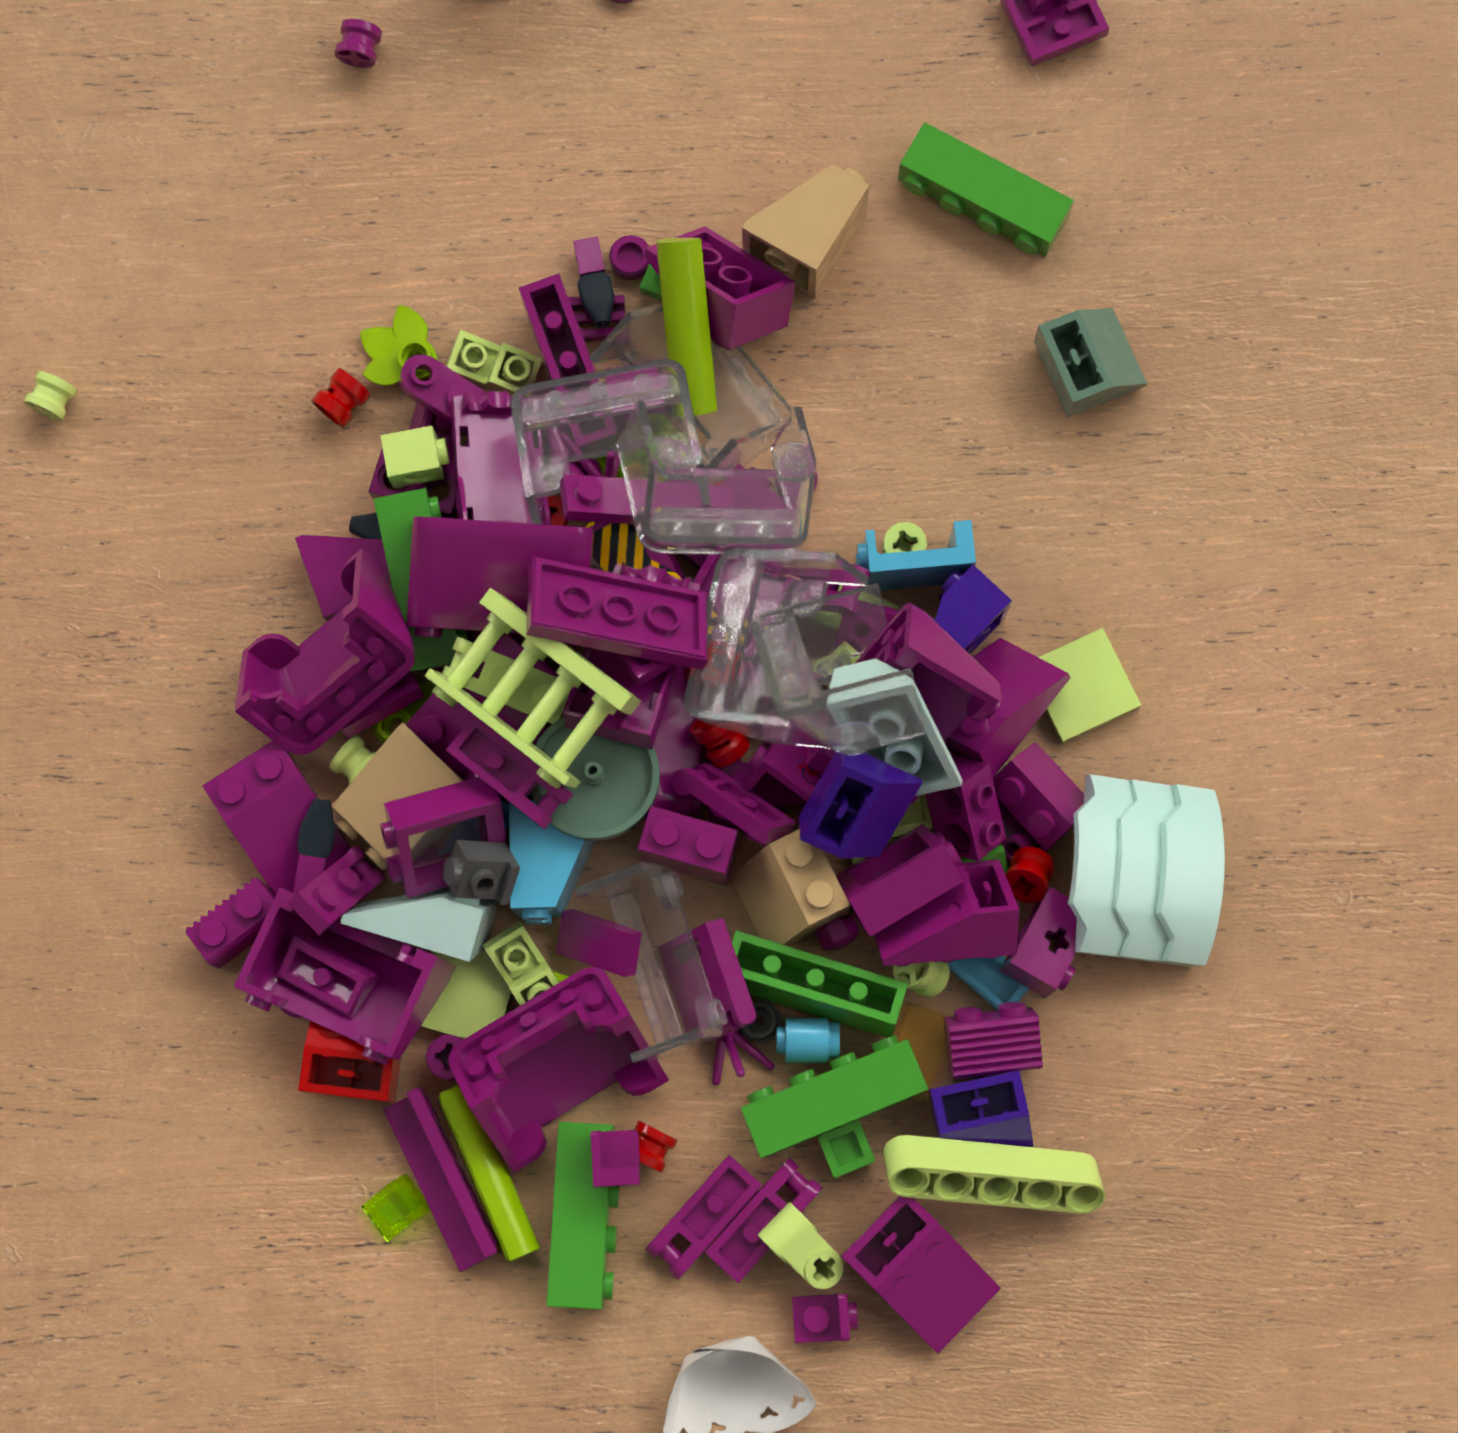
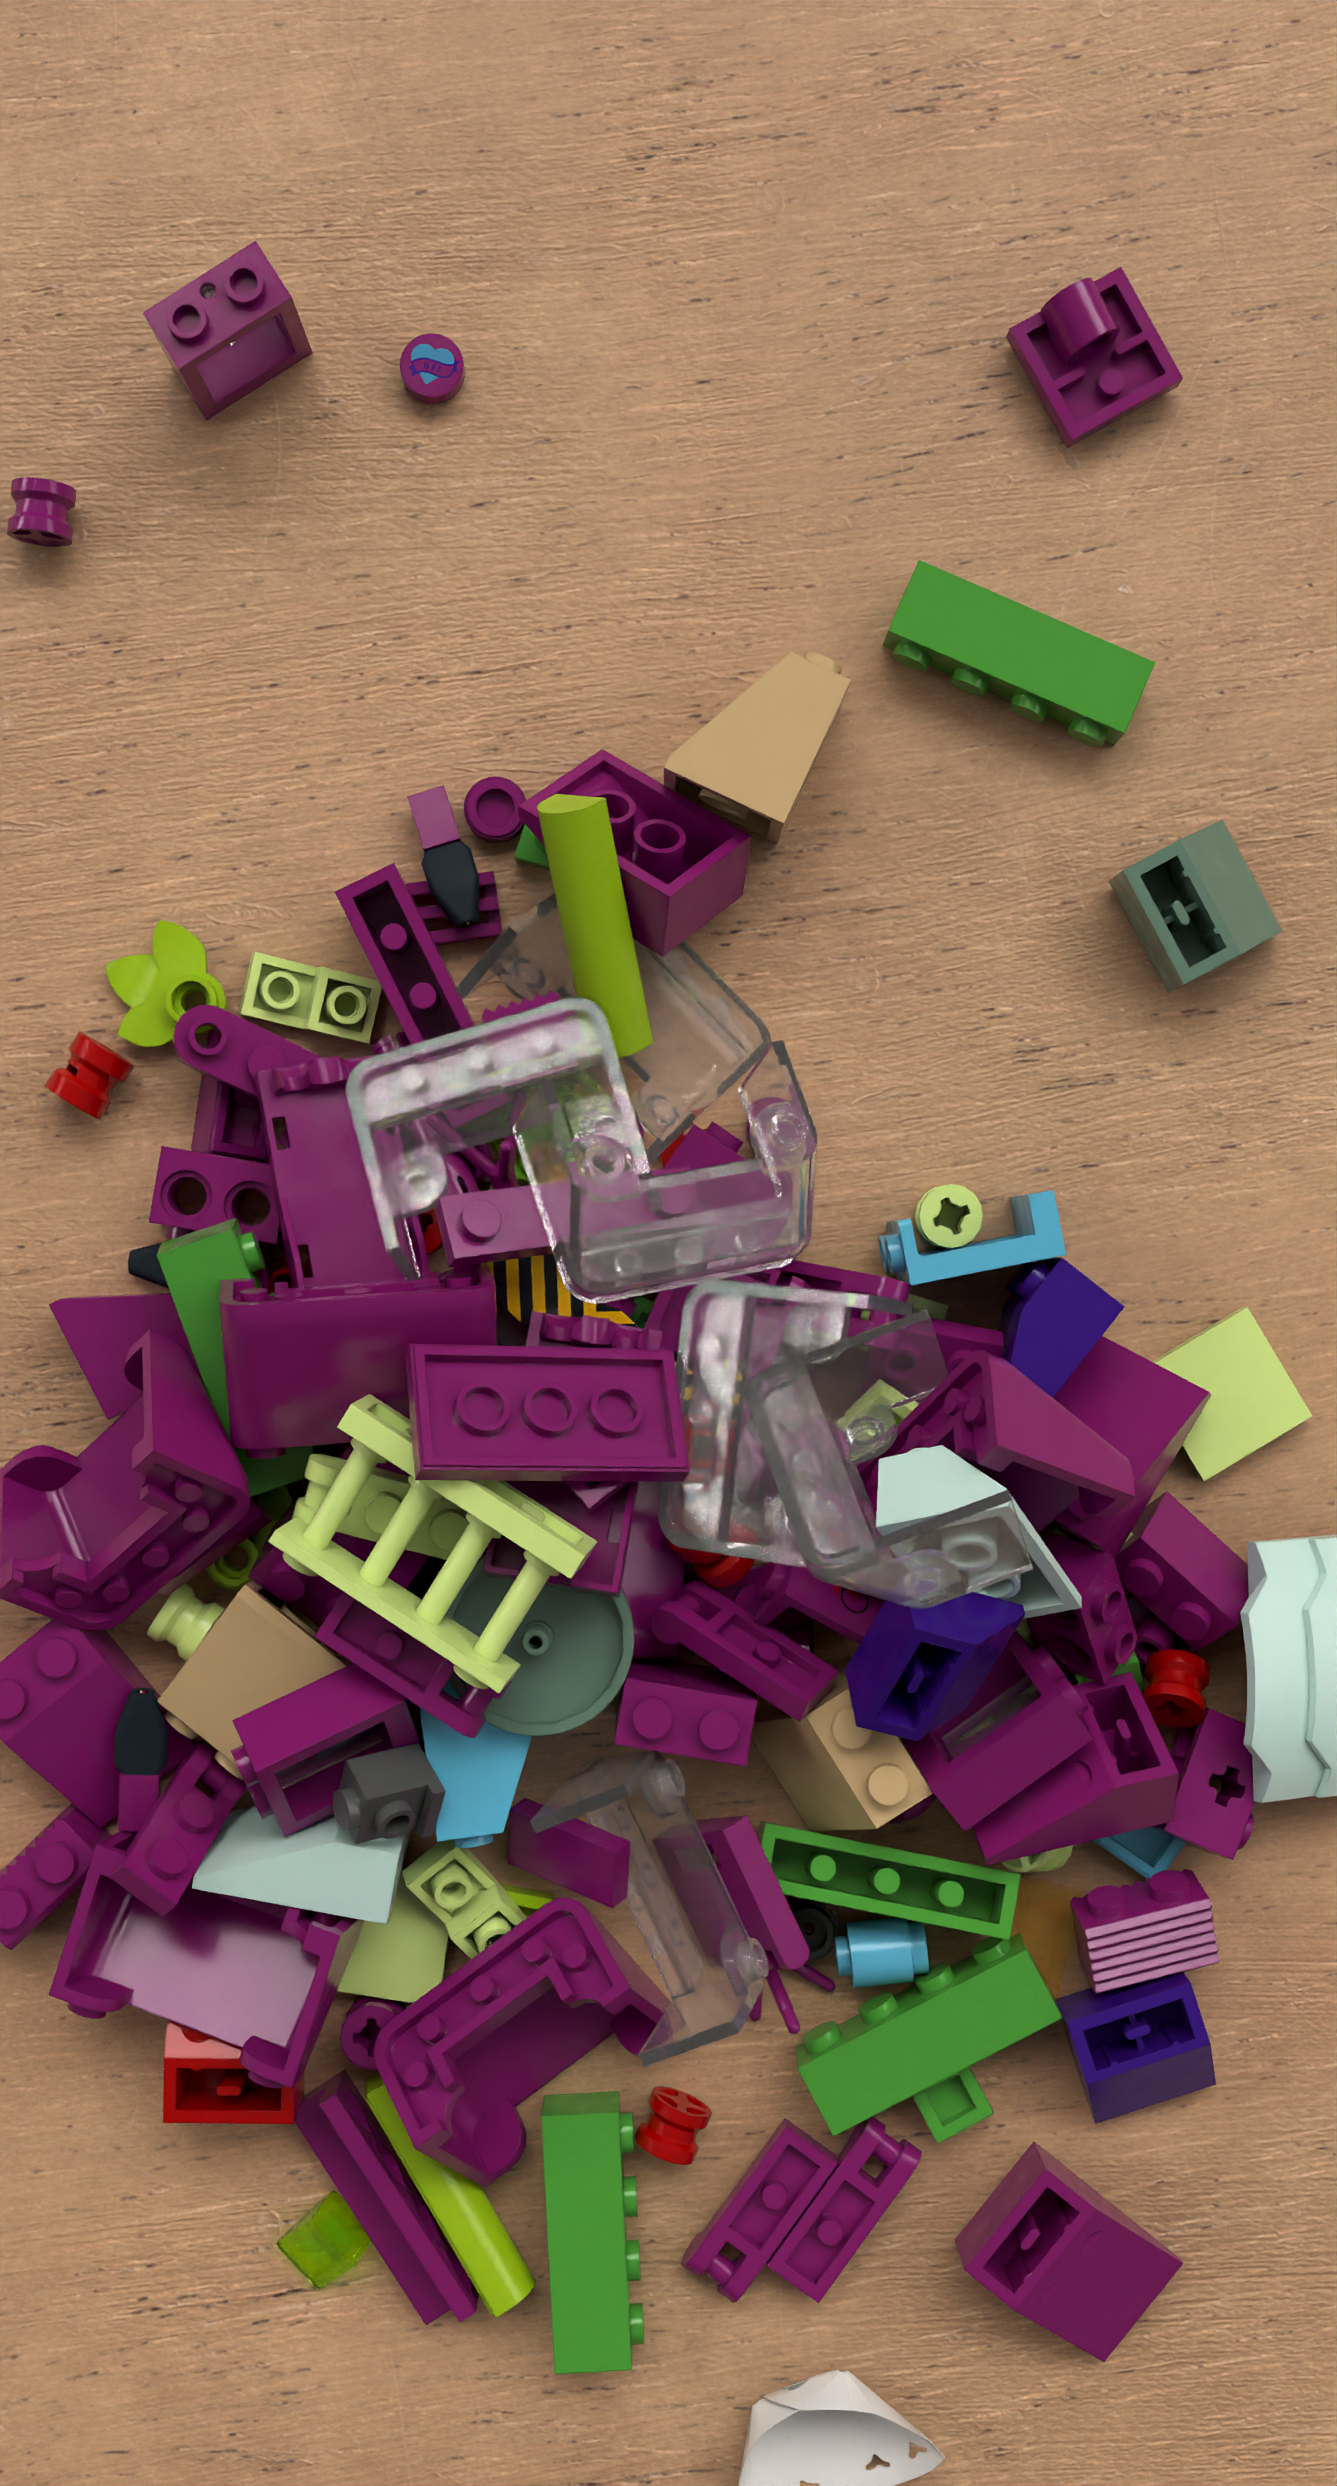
camera: 15 degrees left, 10 degrees up
(327, 974) = (186, 1948): magenta slope -> none
(414, 456) = (210, 1170): yellowish green brick -> none
(615, 1158) = (629, 2171): magenta panel -> none
(799, 1245) = (904, 2254): yellowish green piece -> none
(823, 1317) = (941, 2329): magenta bracket -> none
(993, 1174) = (1163, 2126): yellowish green beam -> none

